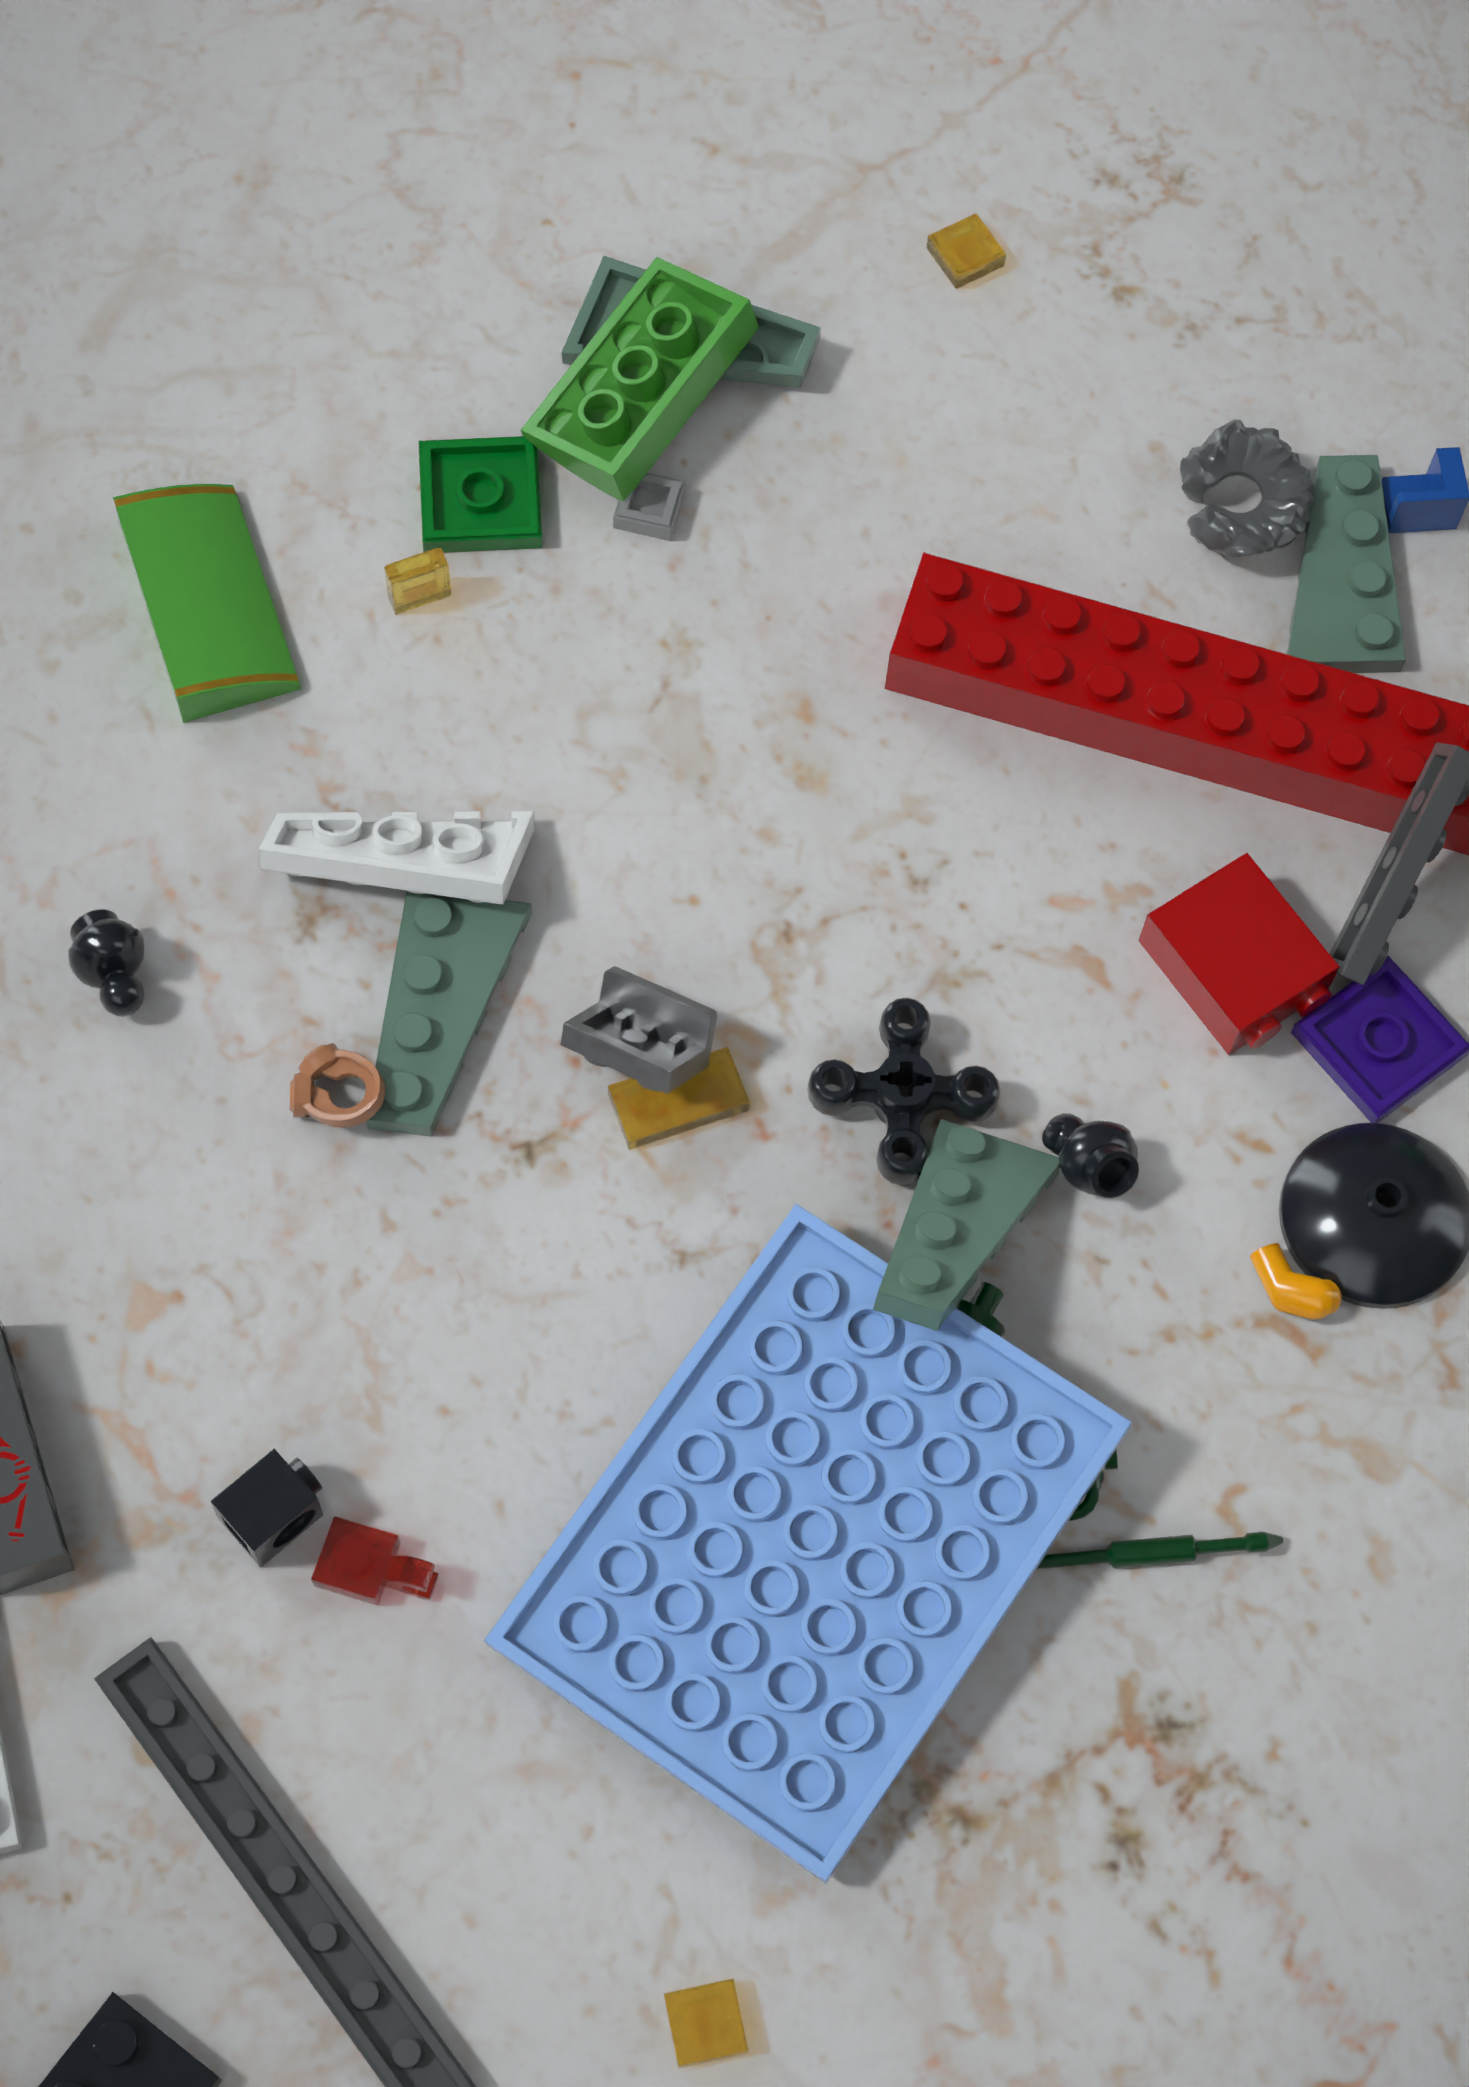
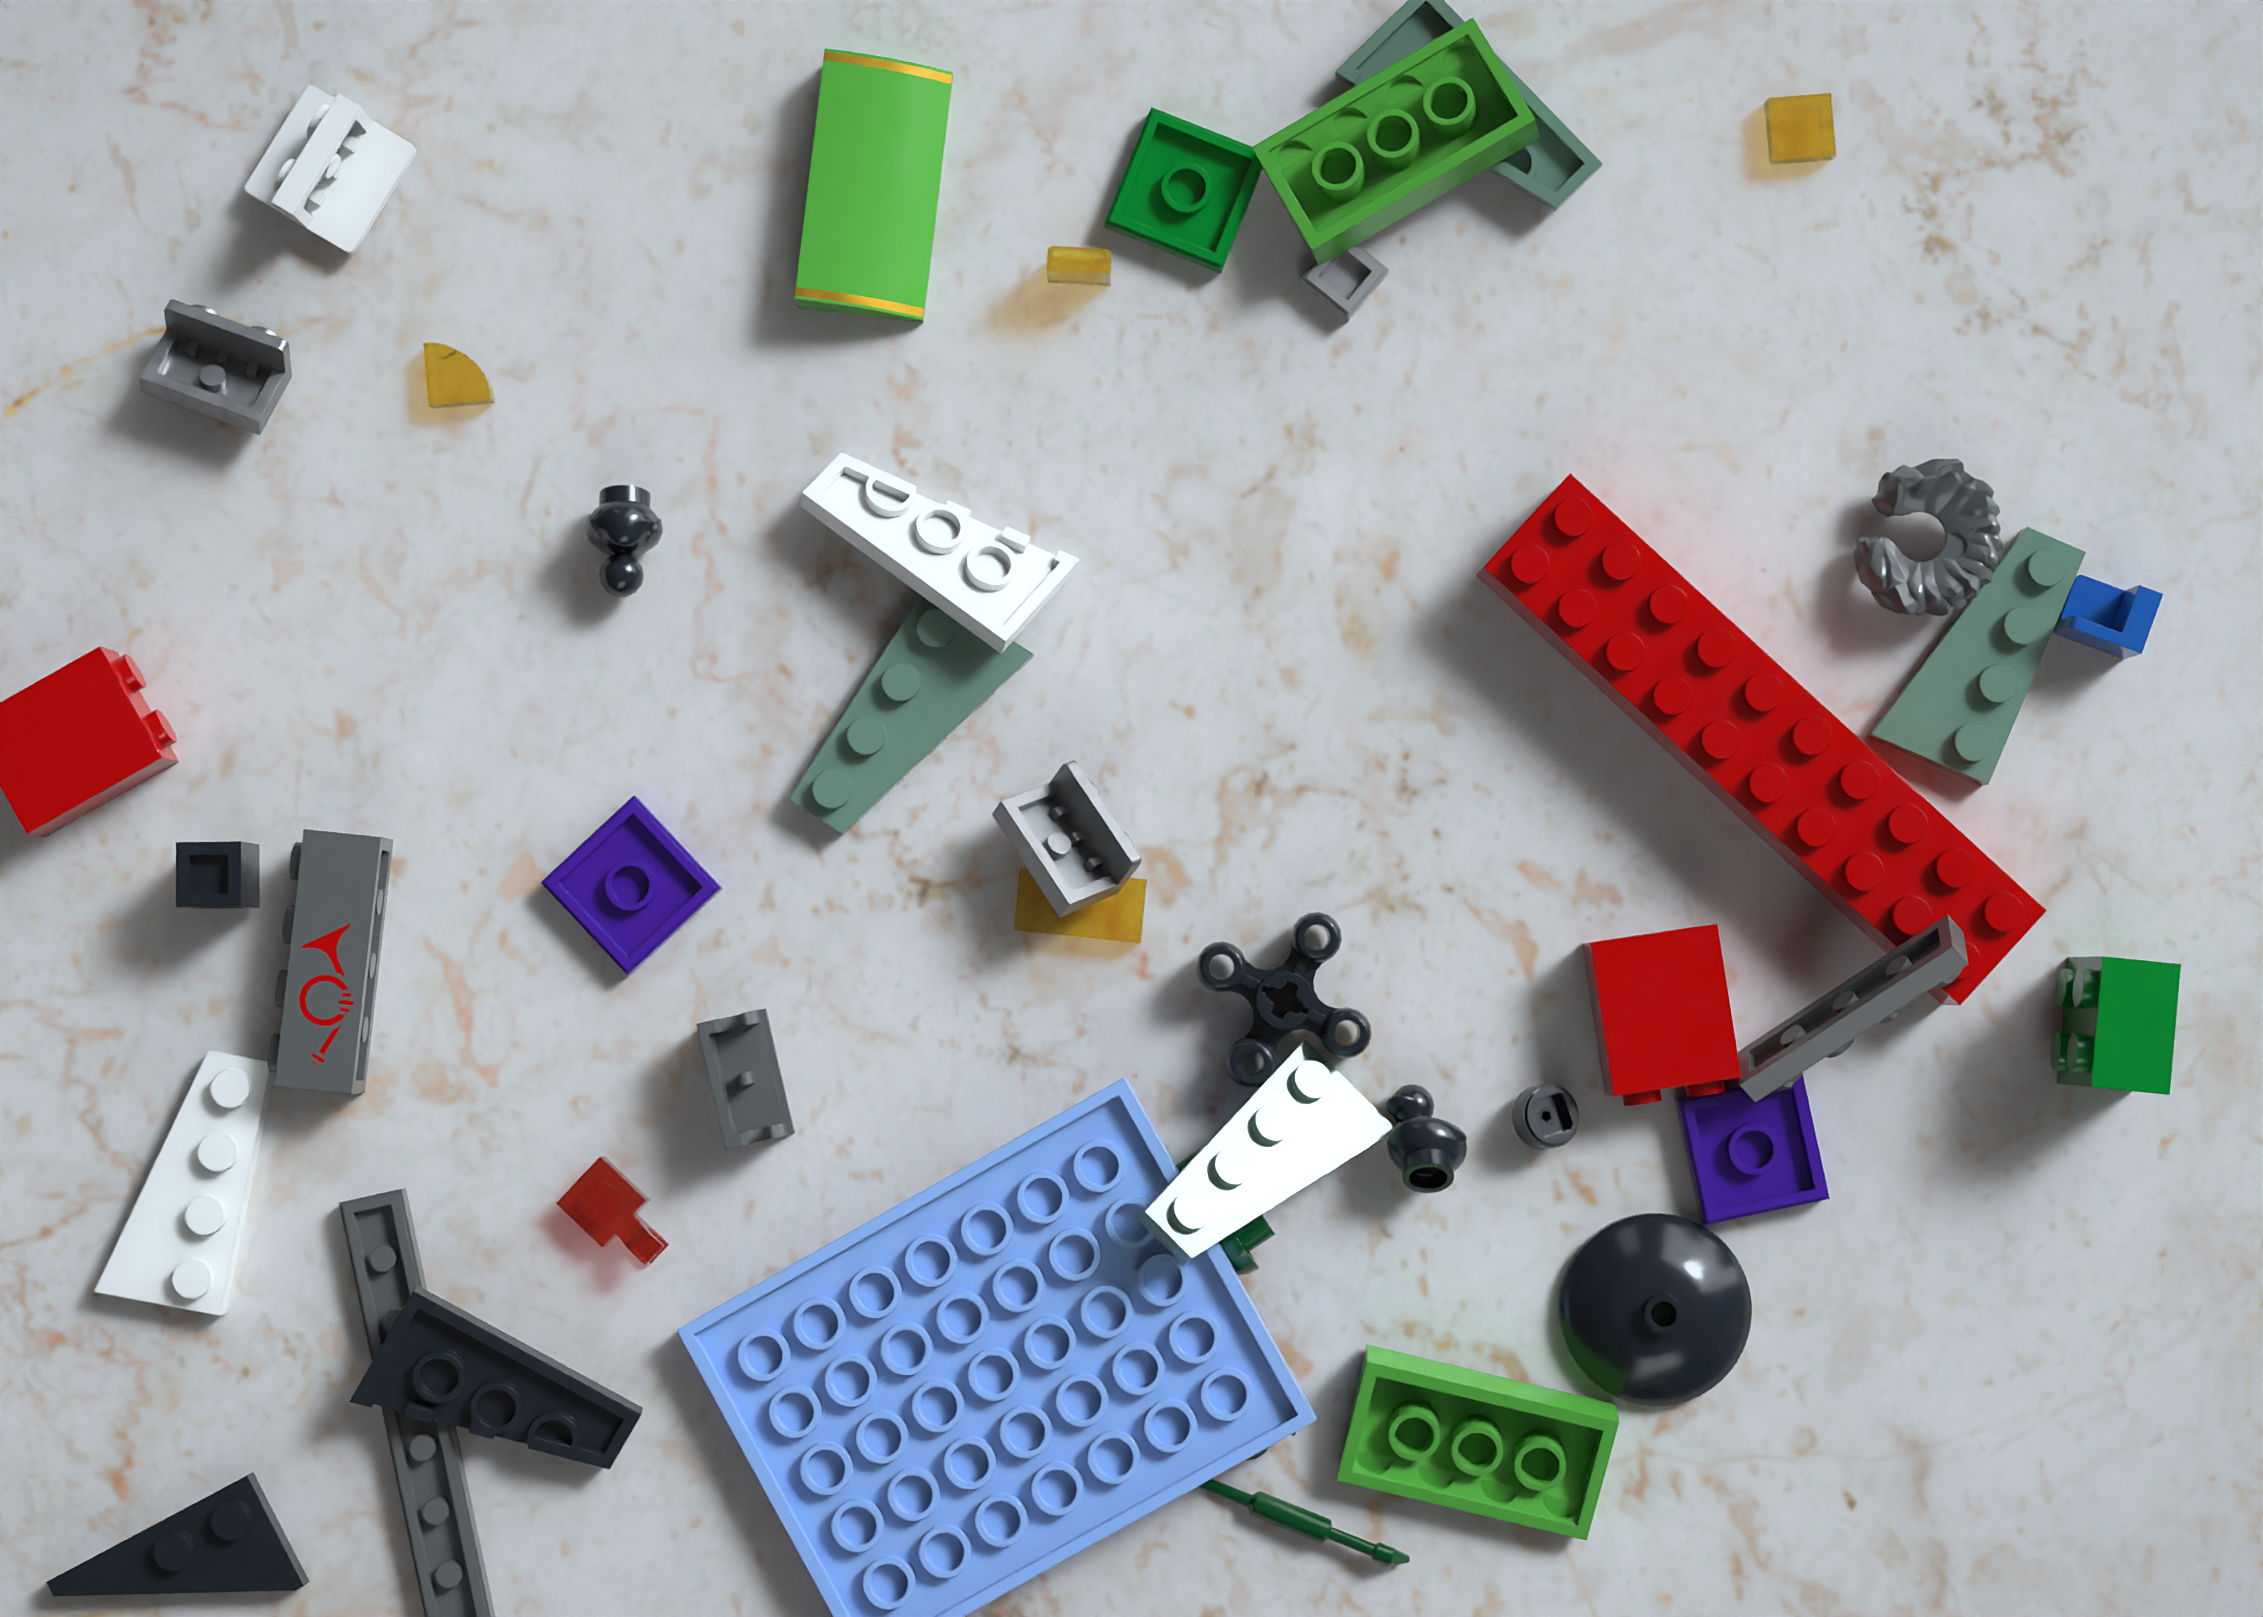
camera: 25 degrees right, 20 degrees up
(252, 1263) = (631, 885): none -> dark purple tile
(269, 1505) = (547, 1123): black brick -> none
(310, 1777) = (476, 1377): none -> black wing
(335, 1064) = (750, 763): nougat piece -> none
(440, 1382) = (745, 1078): none -> dark grey hinge
(1188, 1089) = (1545, 1116): none -> black tile
(1285, 1400) = (1477, 1442): none -> bright green slope
(1292, 1291) = (1537, 1348): light orange arm -> none

